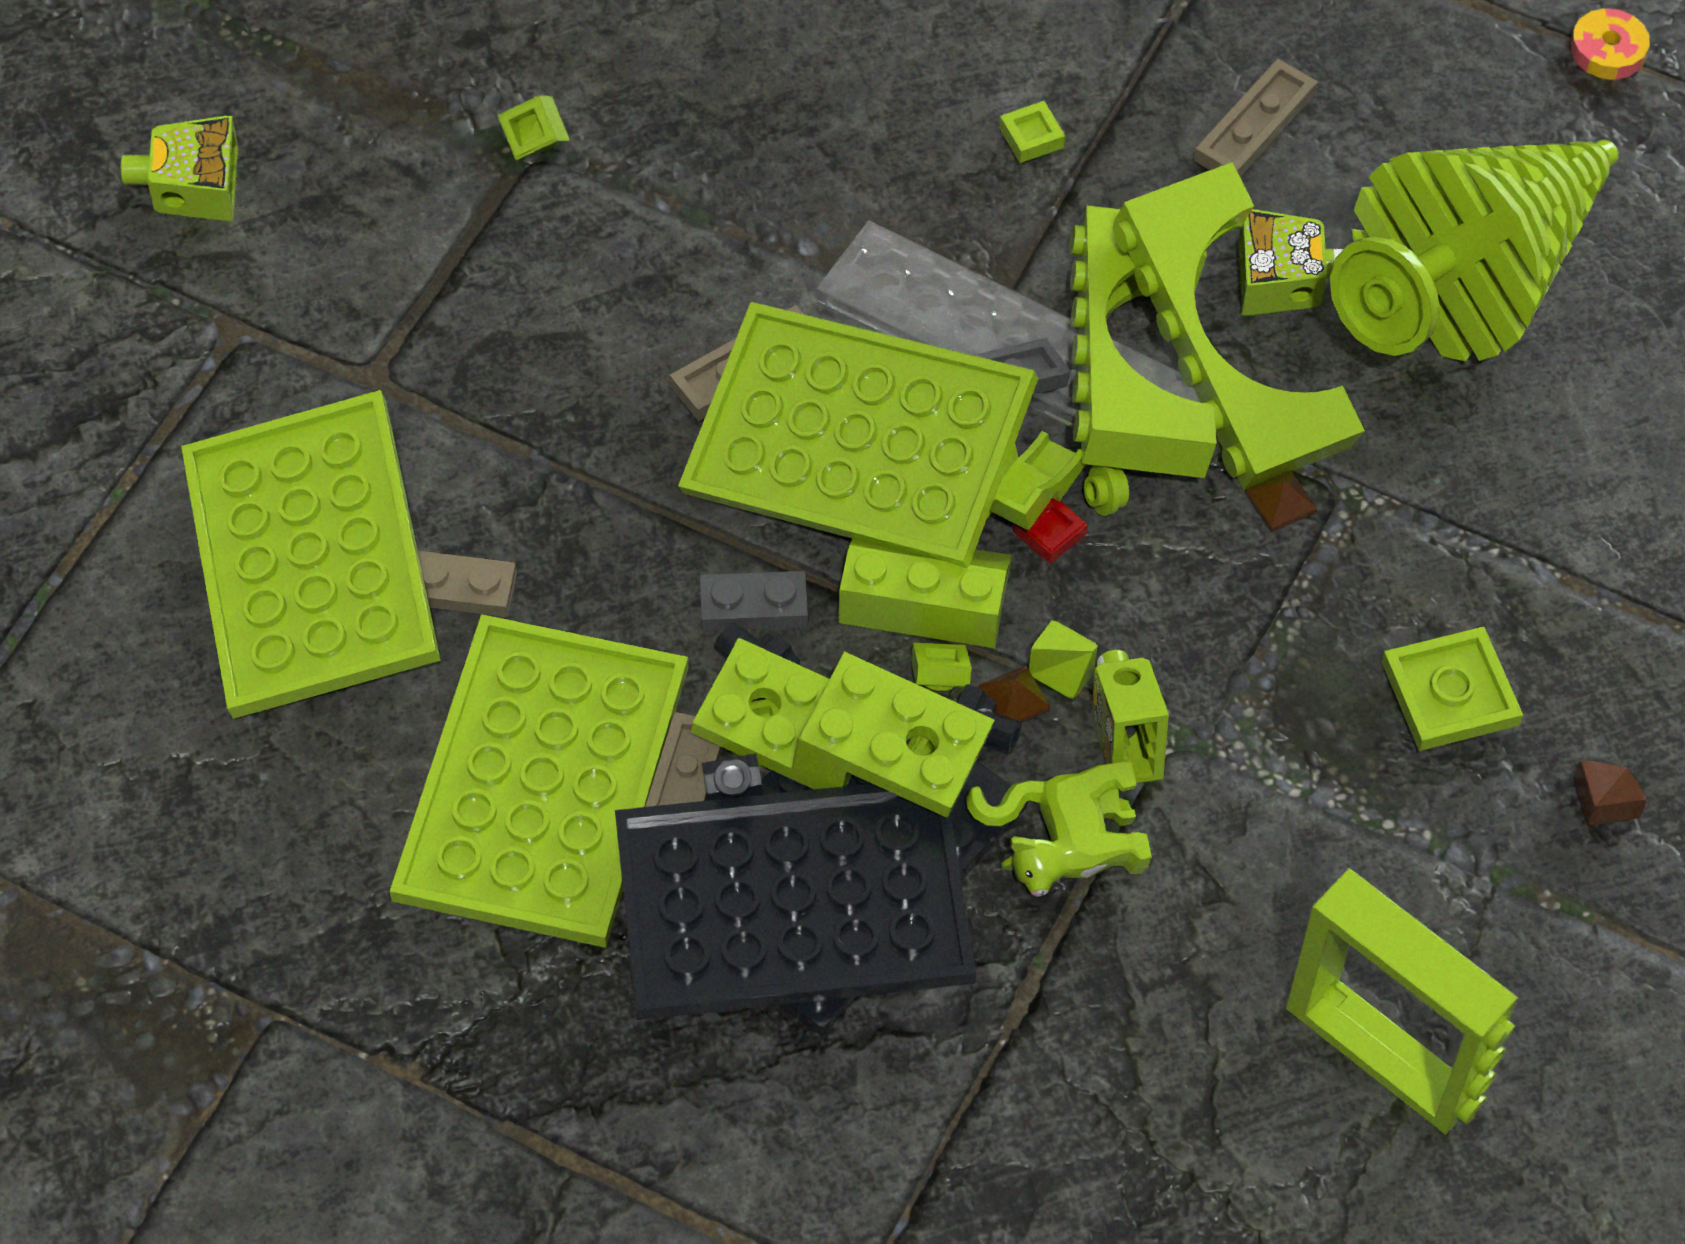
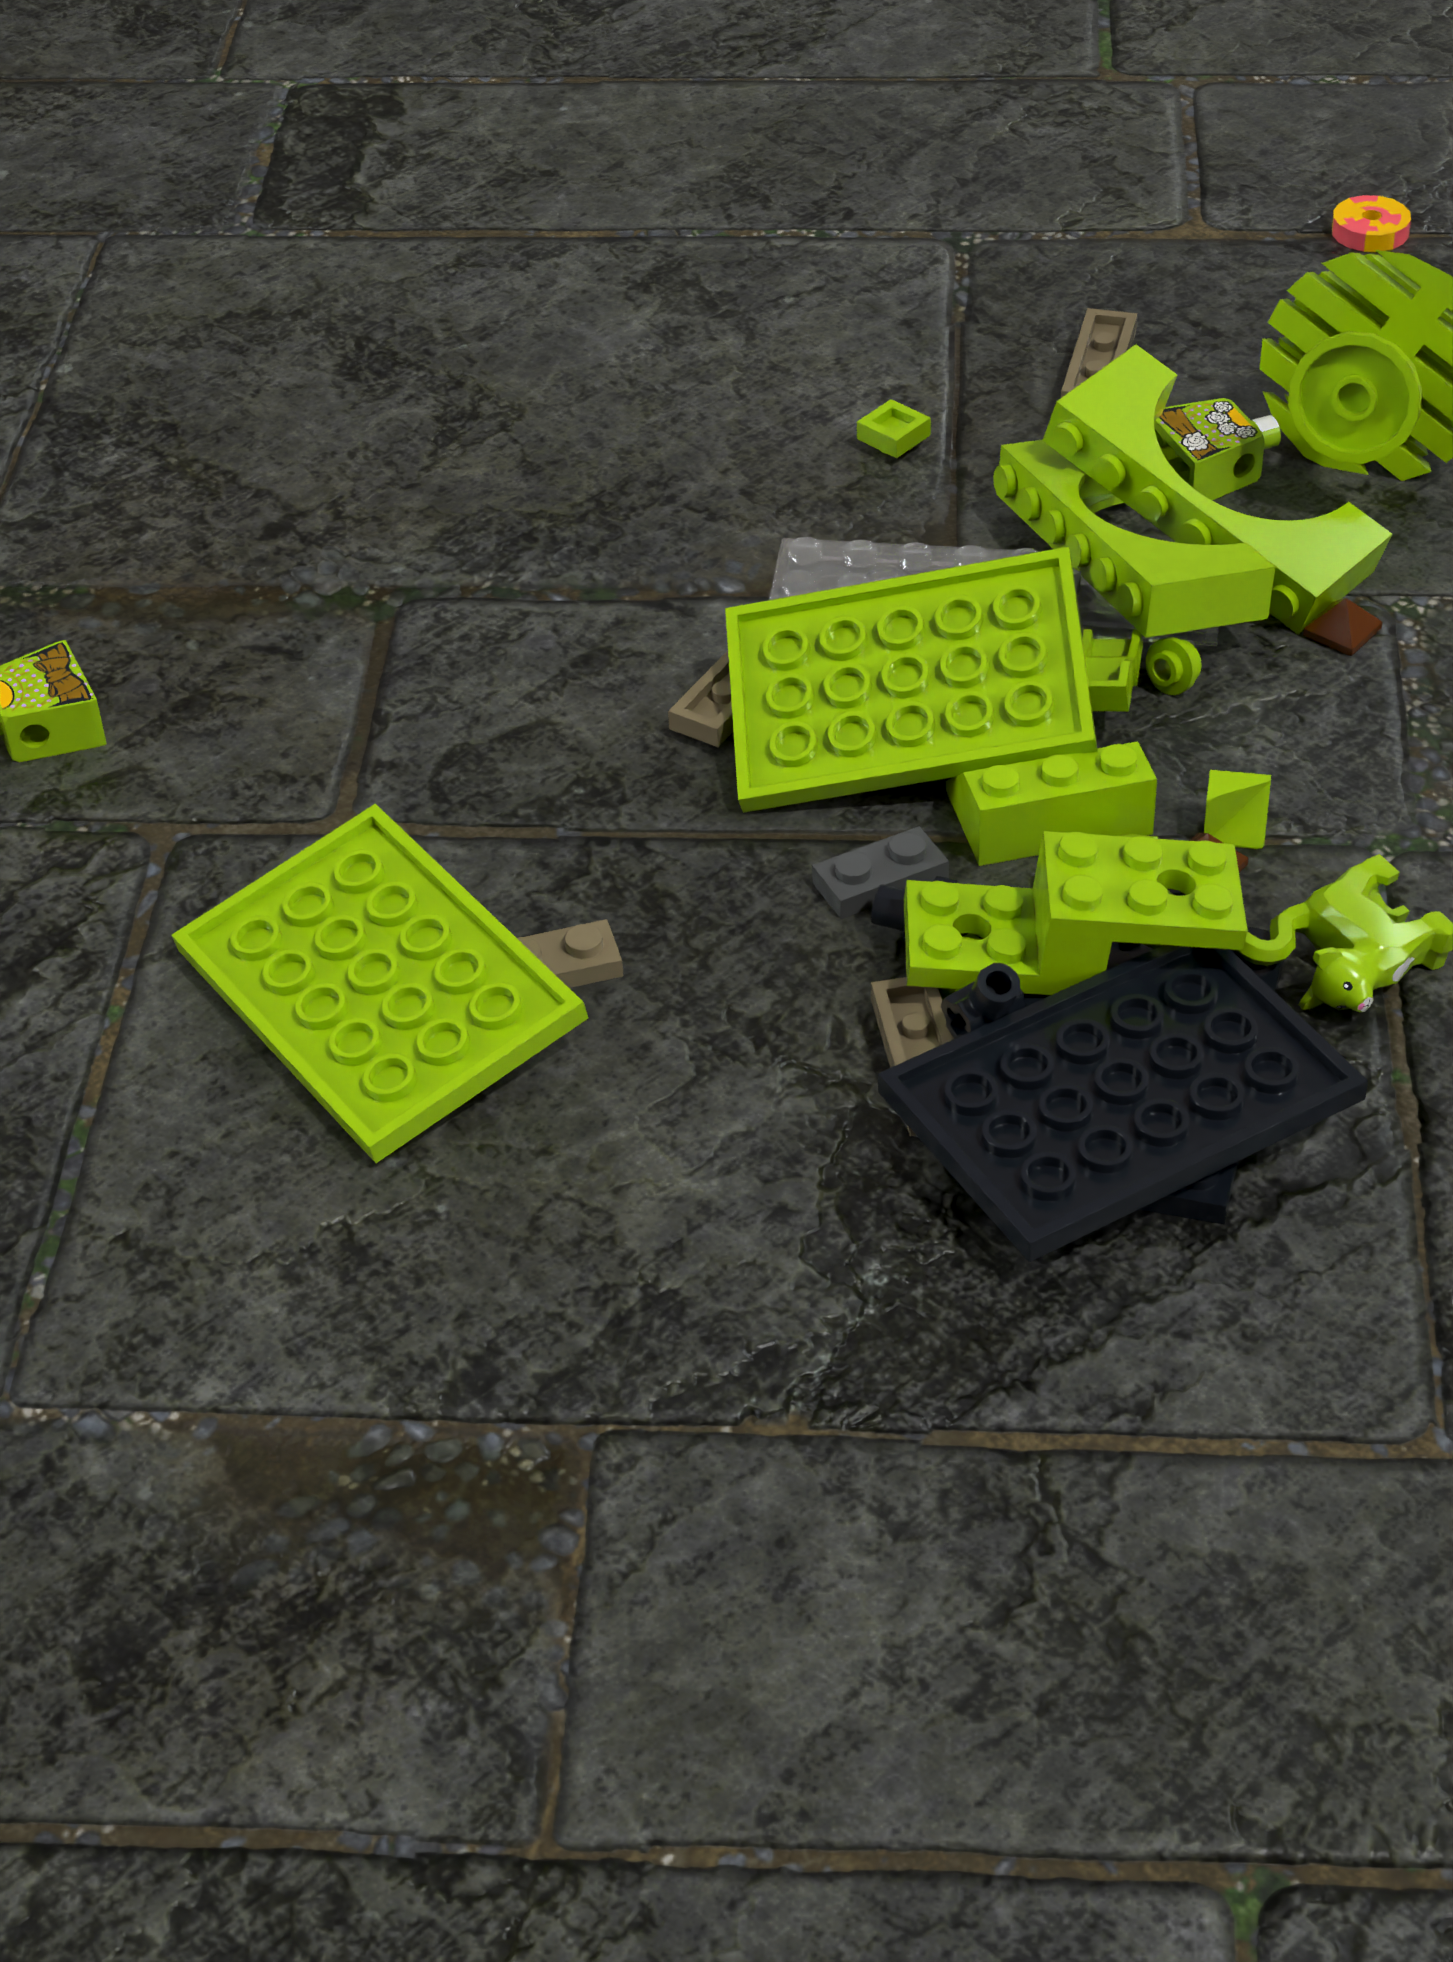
camera: 20 degrees left, 15 degrees down
(529, 780) = (764, 1099): lime plate -> none
(533, 127) = (387, 569): lime slope -> none
(1053, 531) = (1145, 721): red tile -> none
(1128, 696) = (1343, 818): lime torso -> none

